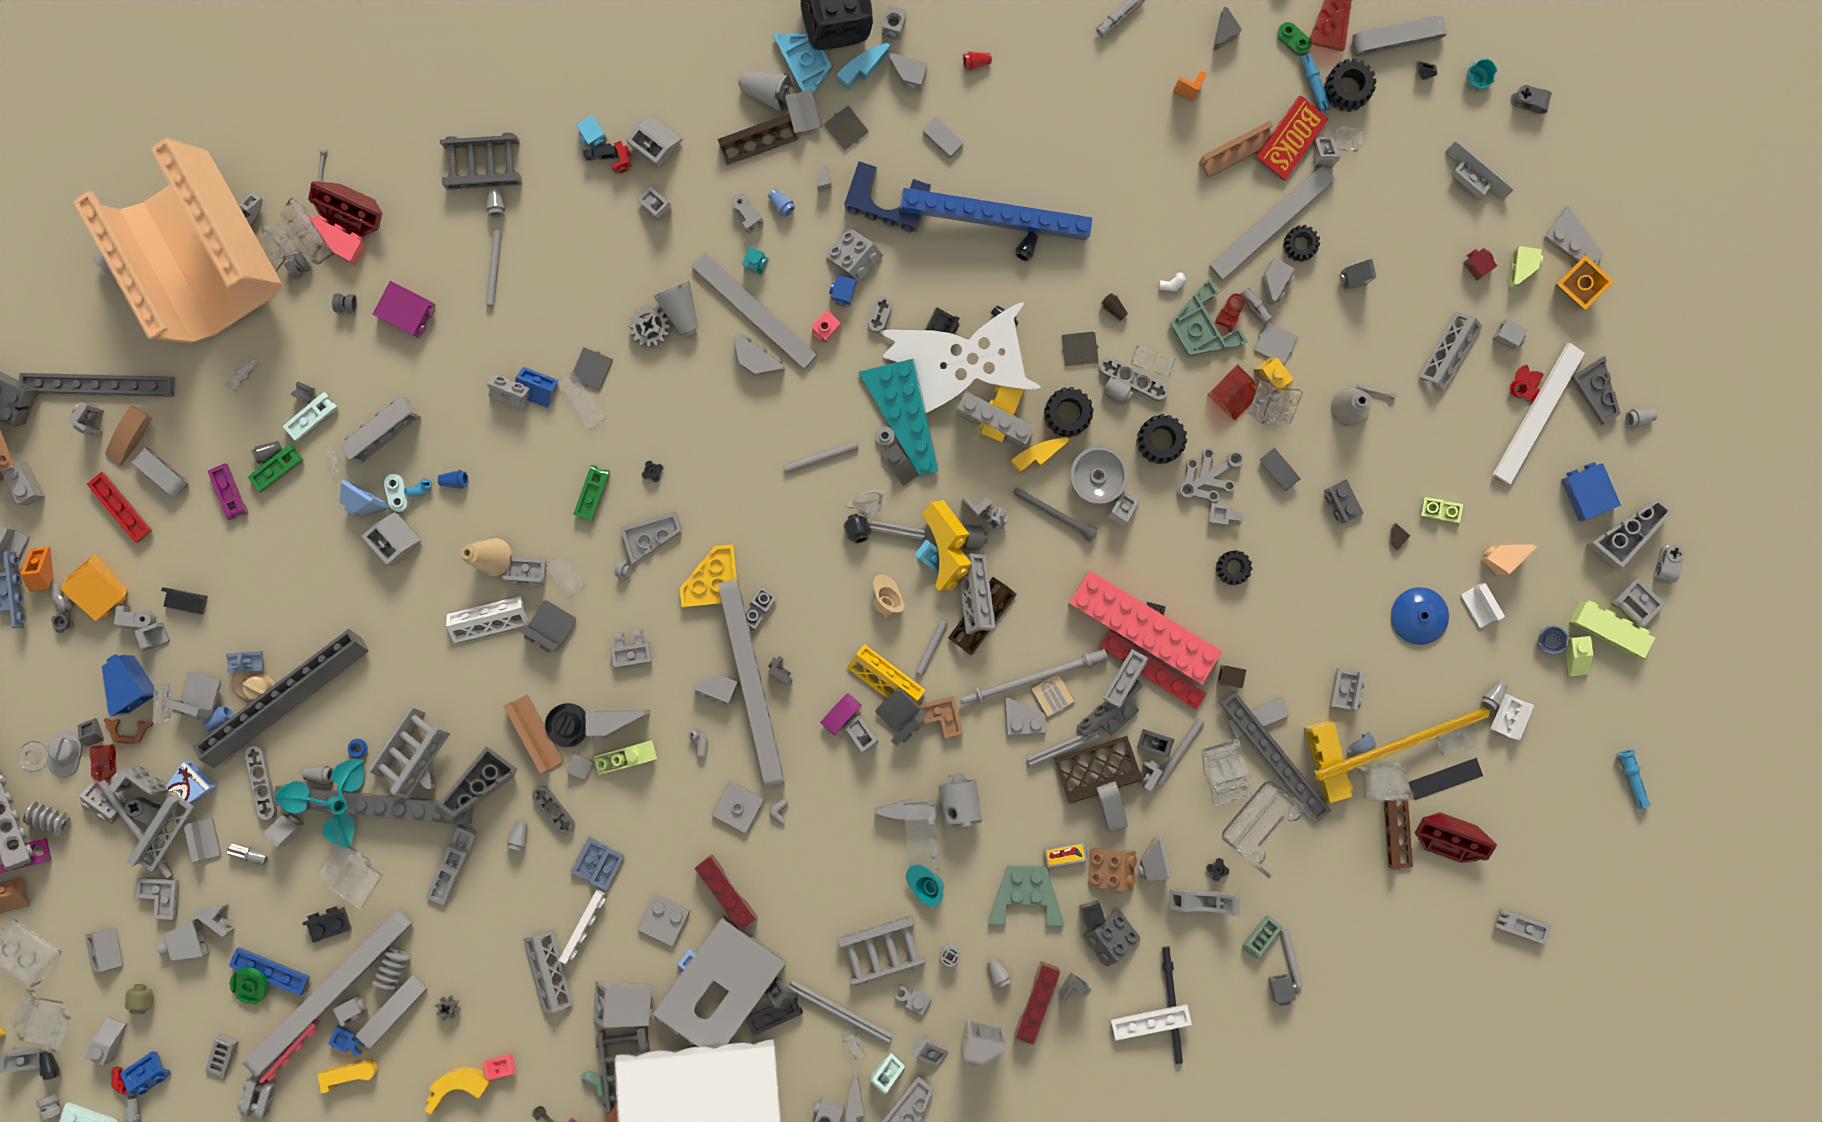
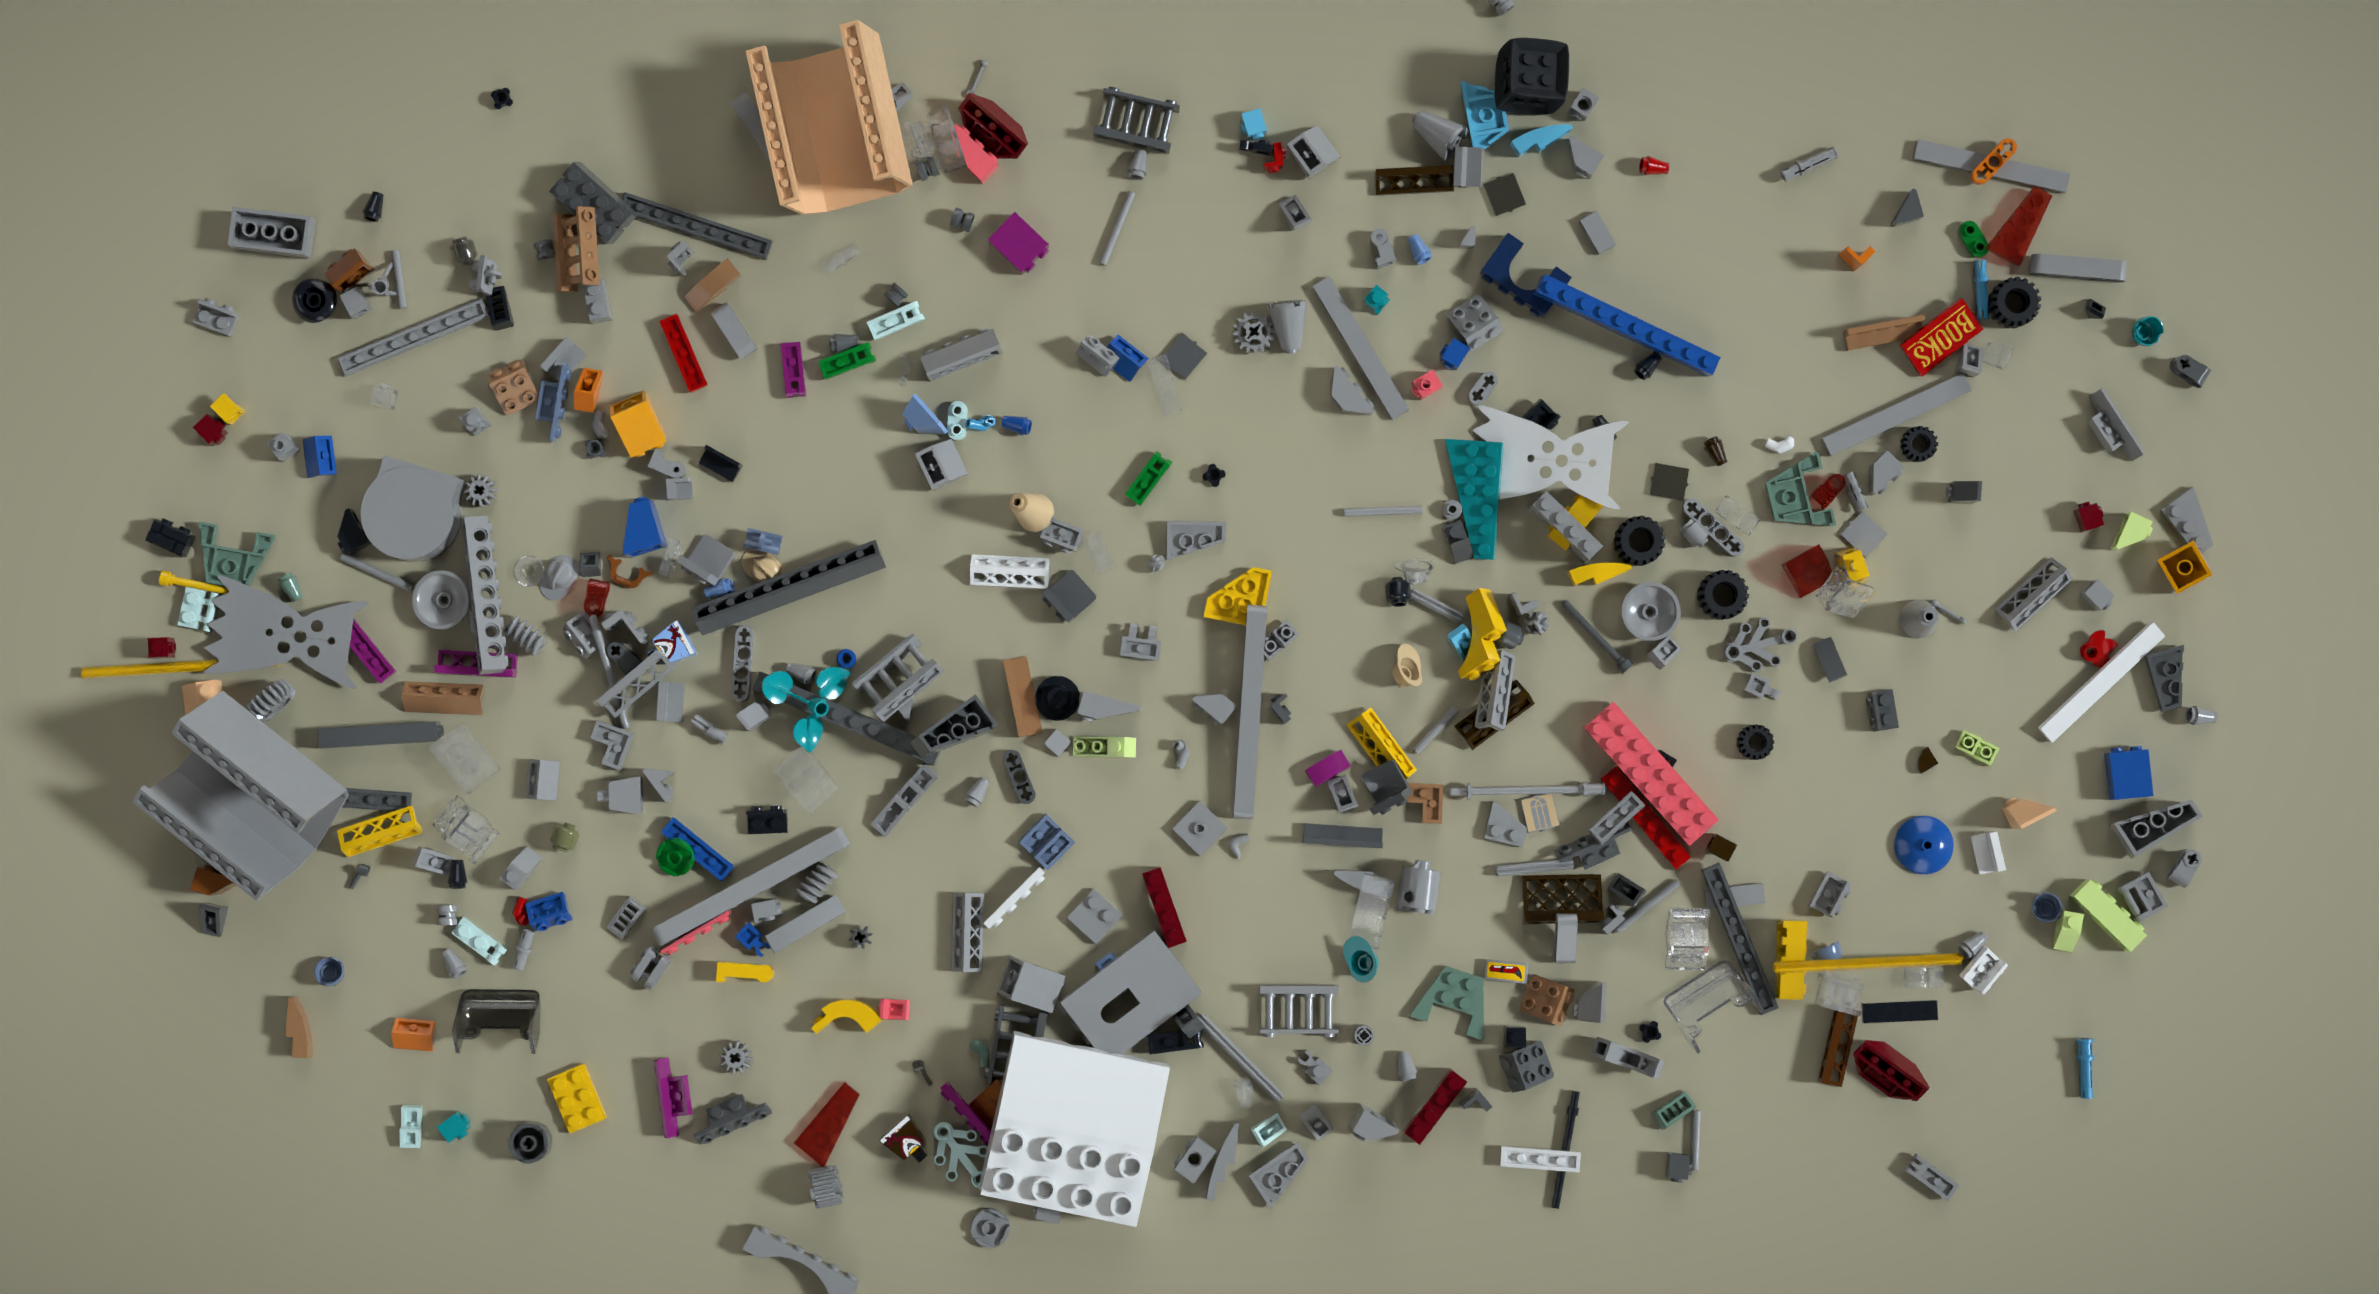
camera: 15 degrees right, 0 degrees up
(874, 773) = (1343, 835): none -> dark grey fence

